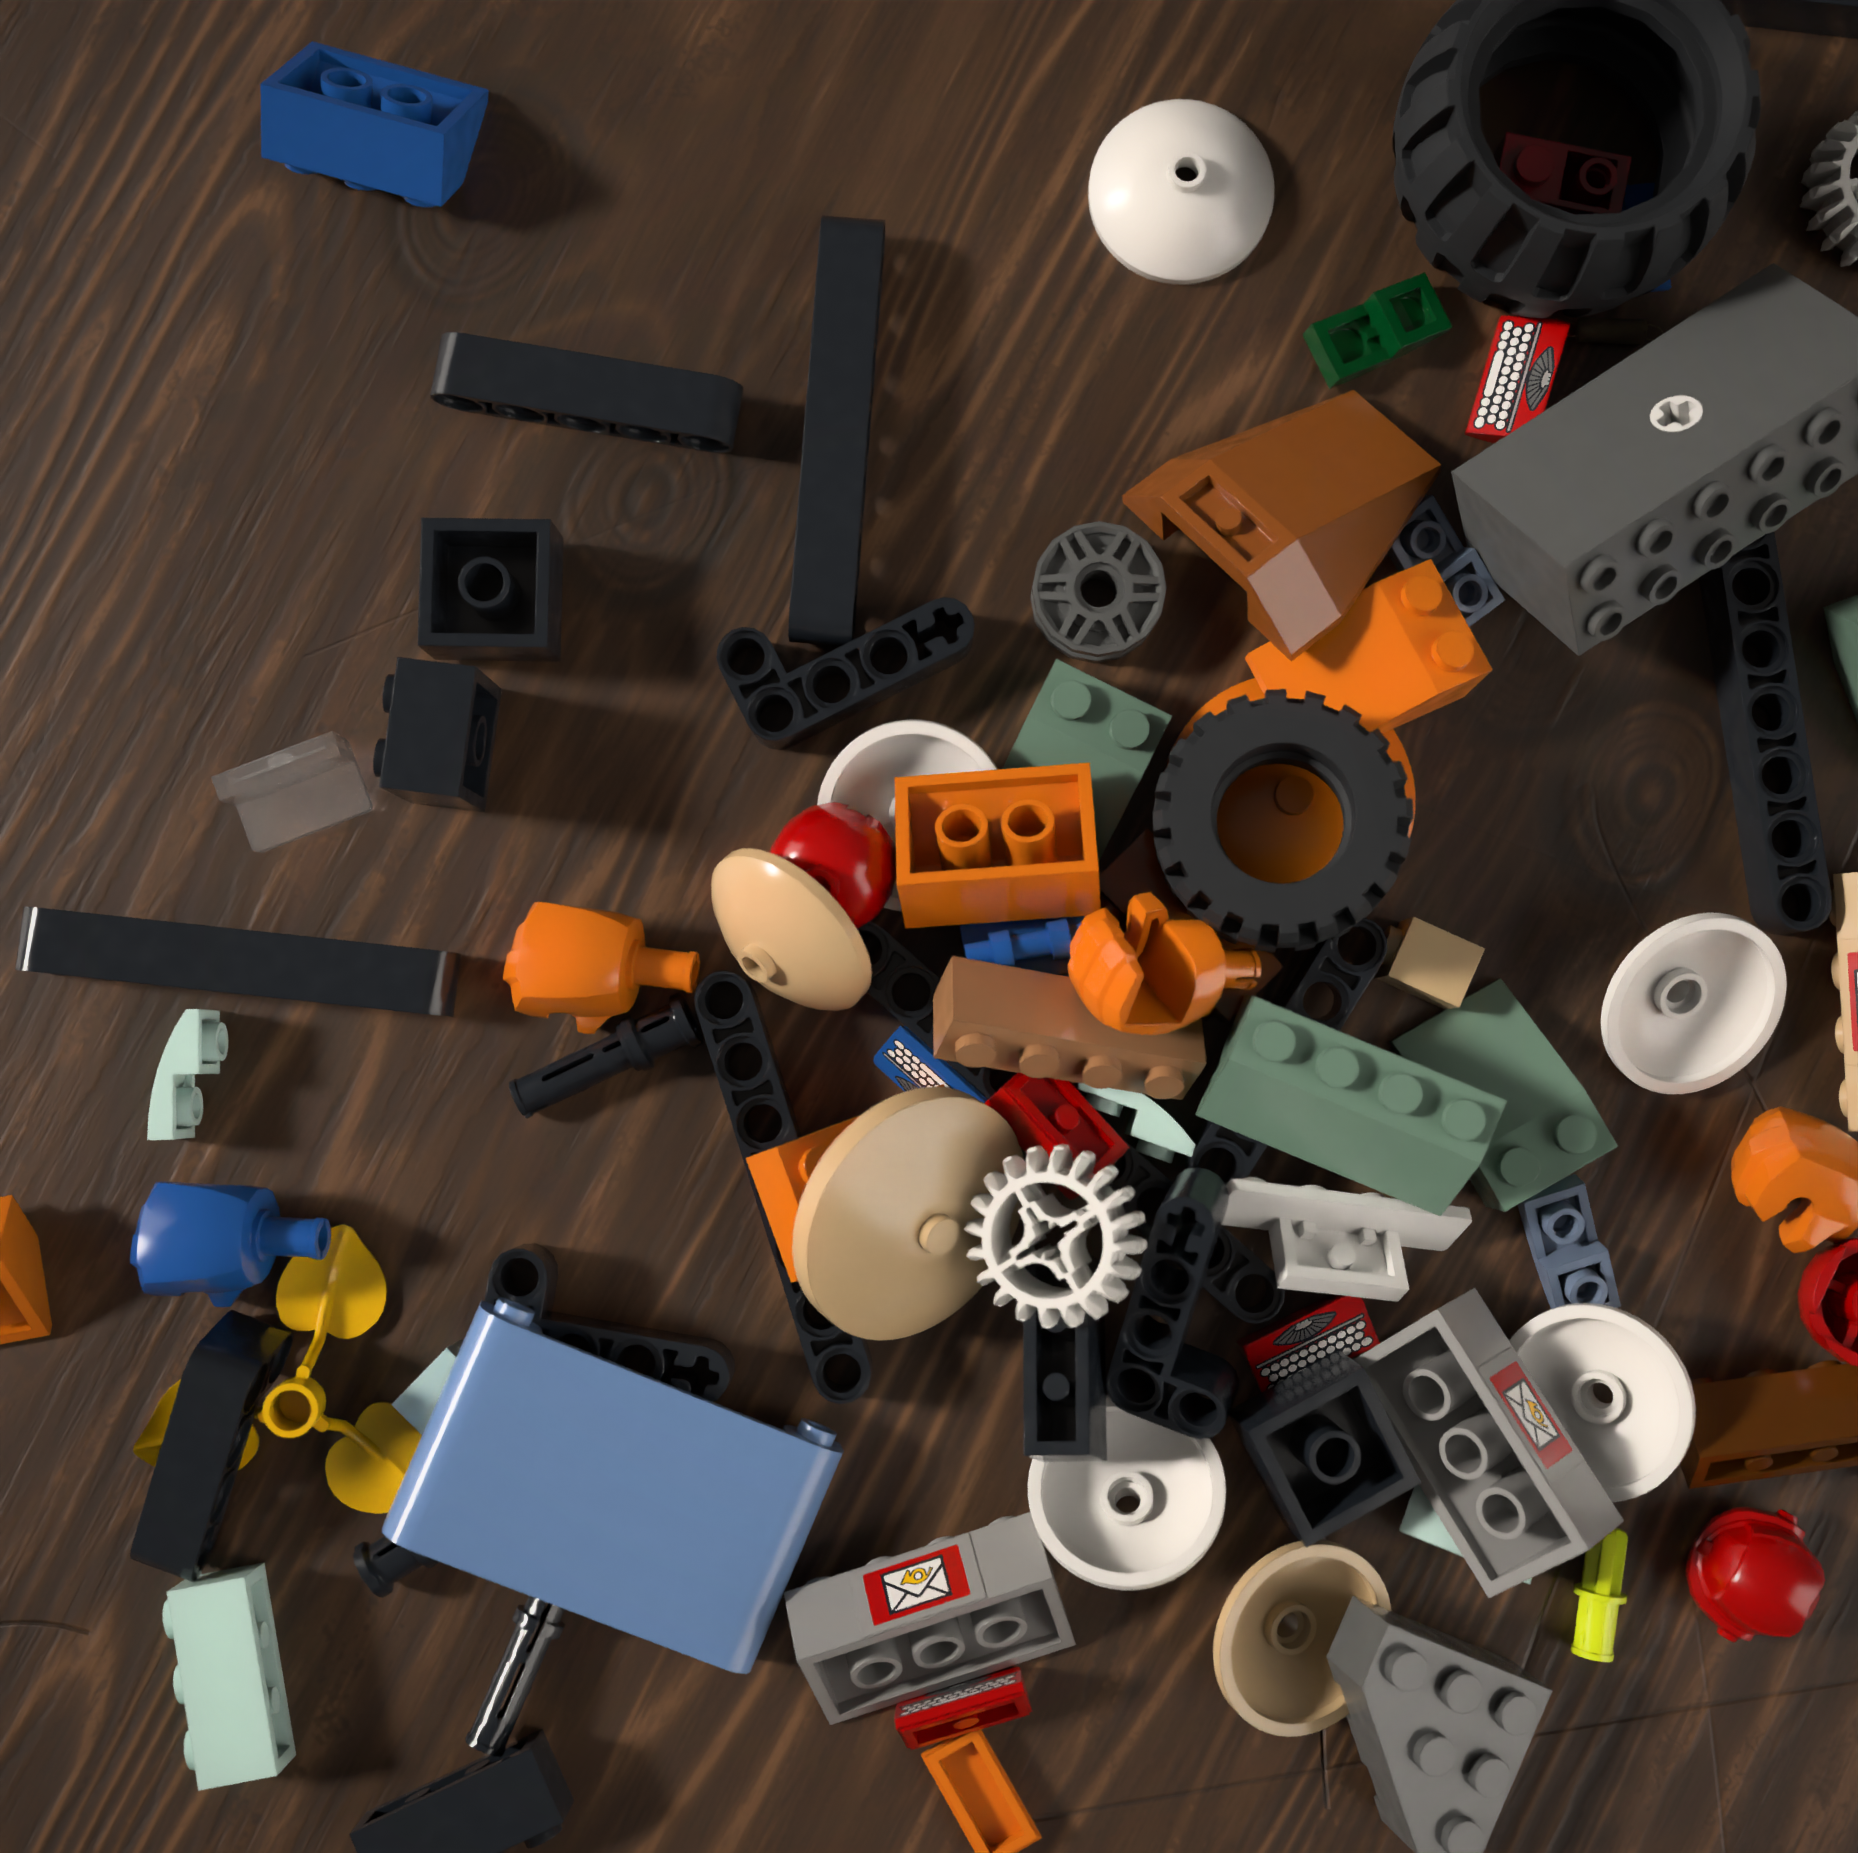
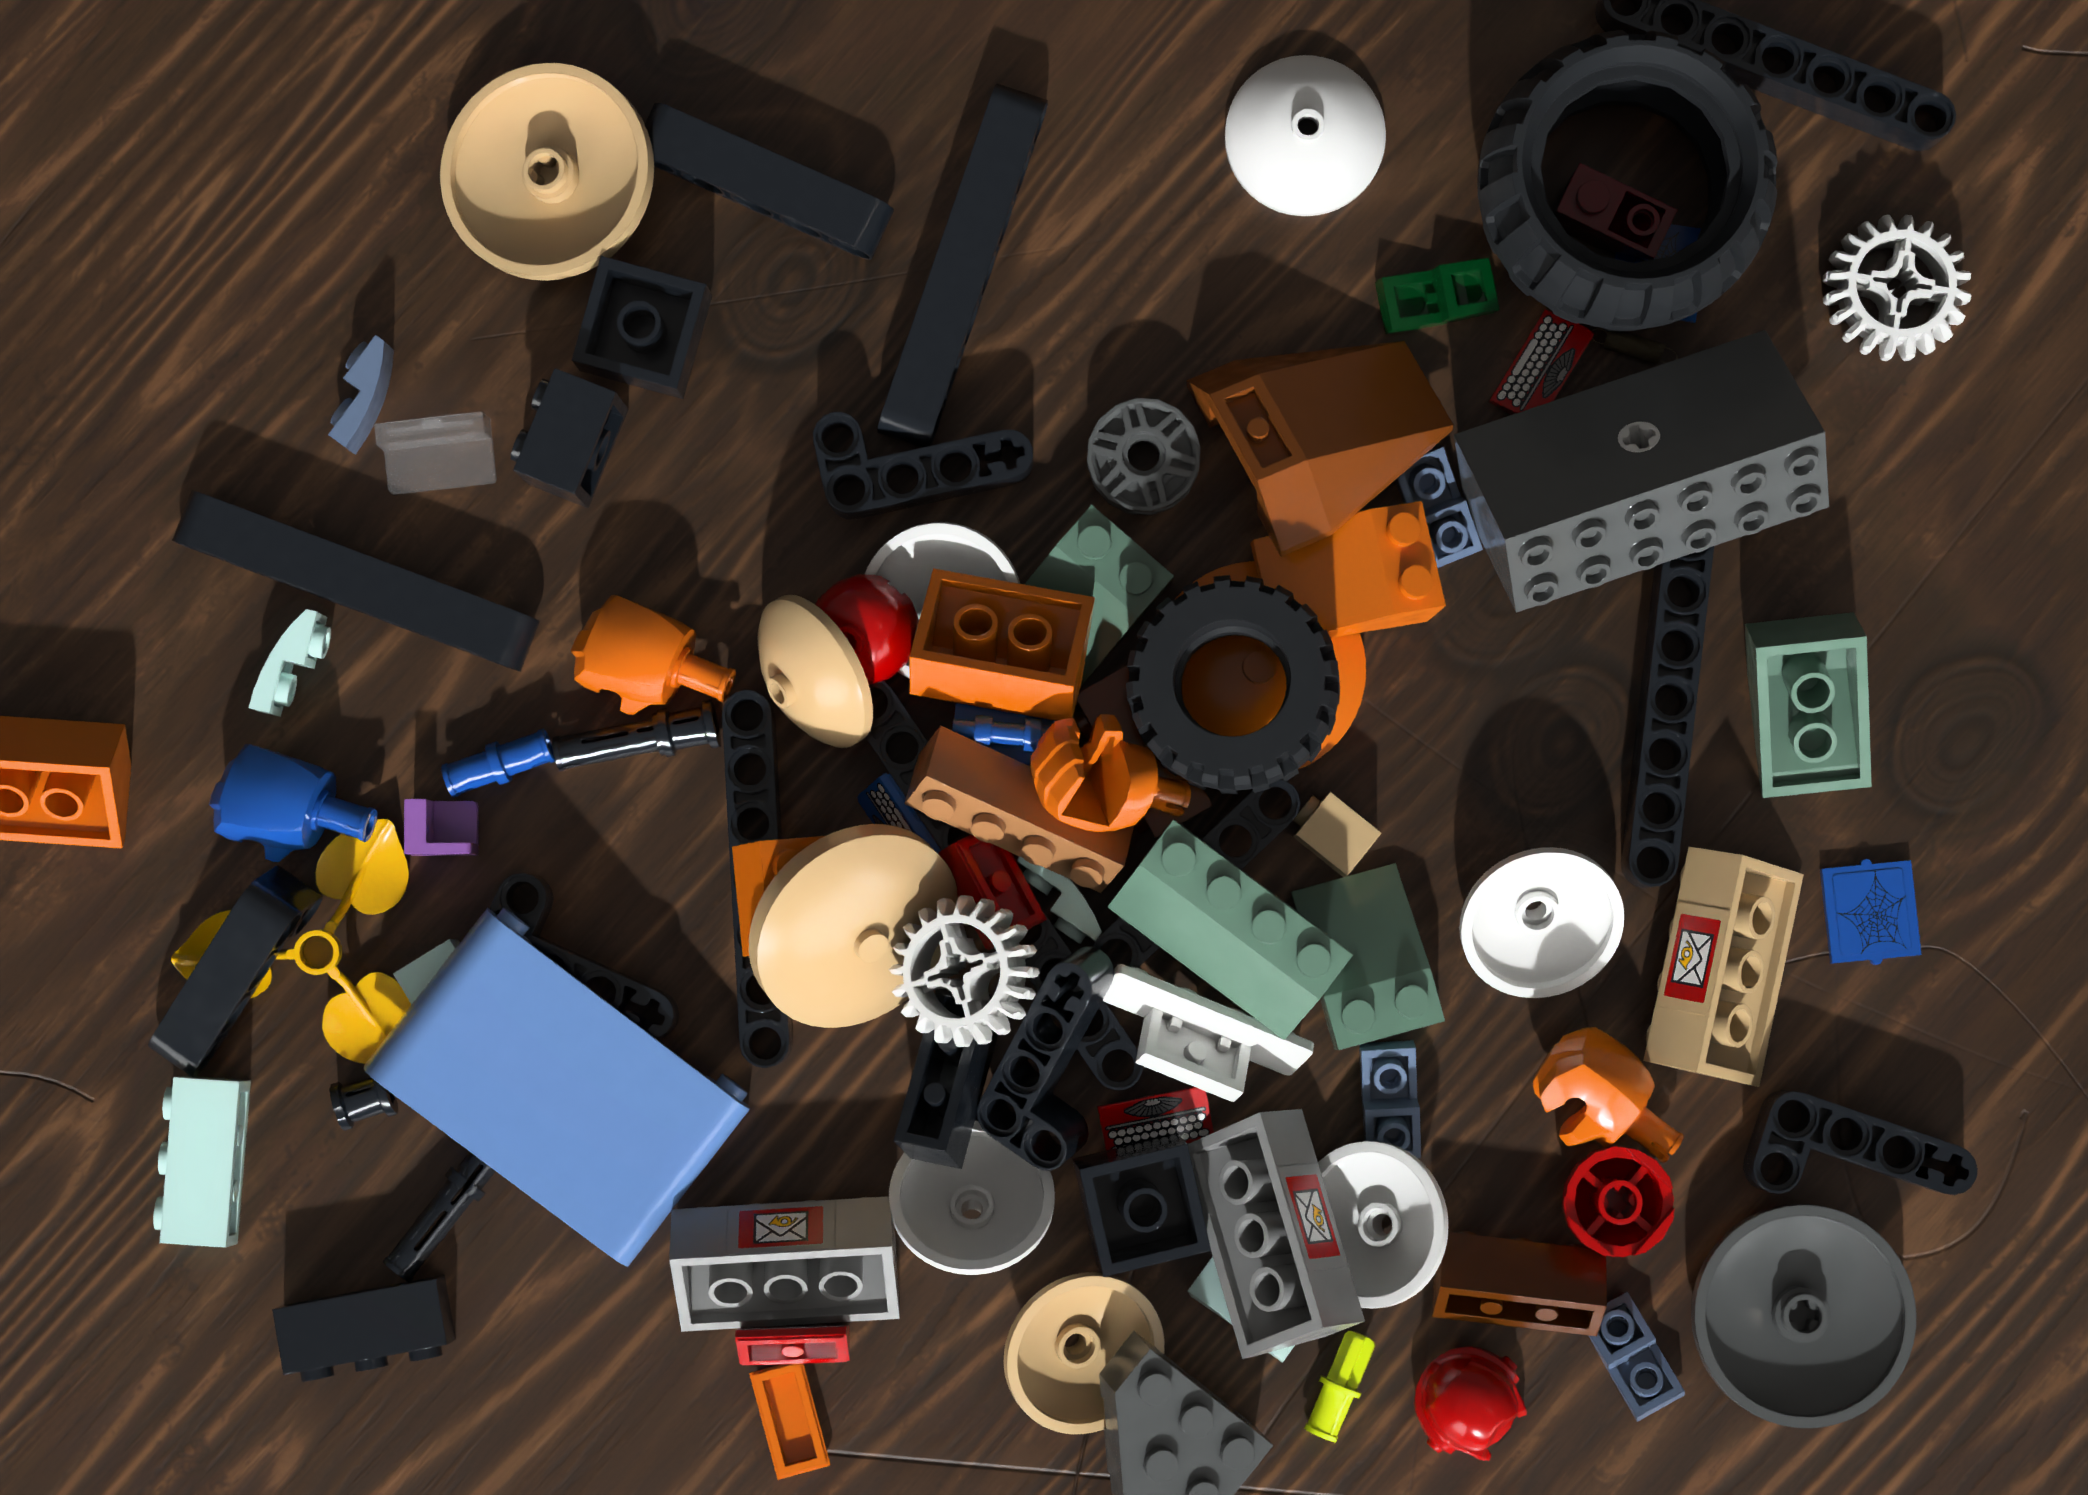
camera: 15 degrees right, 0 degrees up
(196, 720) = (370, 374): none -> sand blue slope
(338, 441) = (547, 171): none -> tan dish
(406, 1219) = (440, 828): none -> medium lavender panel
(453, 1128) = (498, 763): none -> blue pin

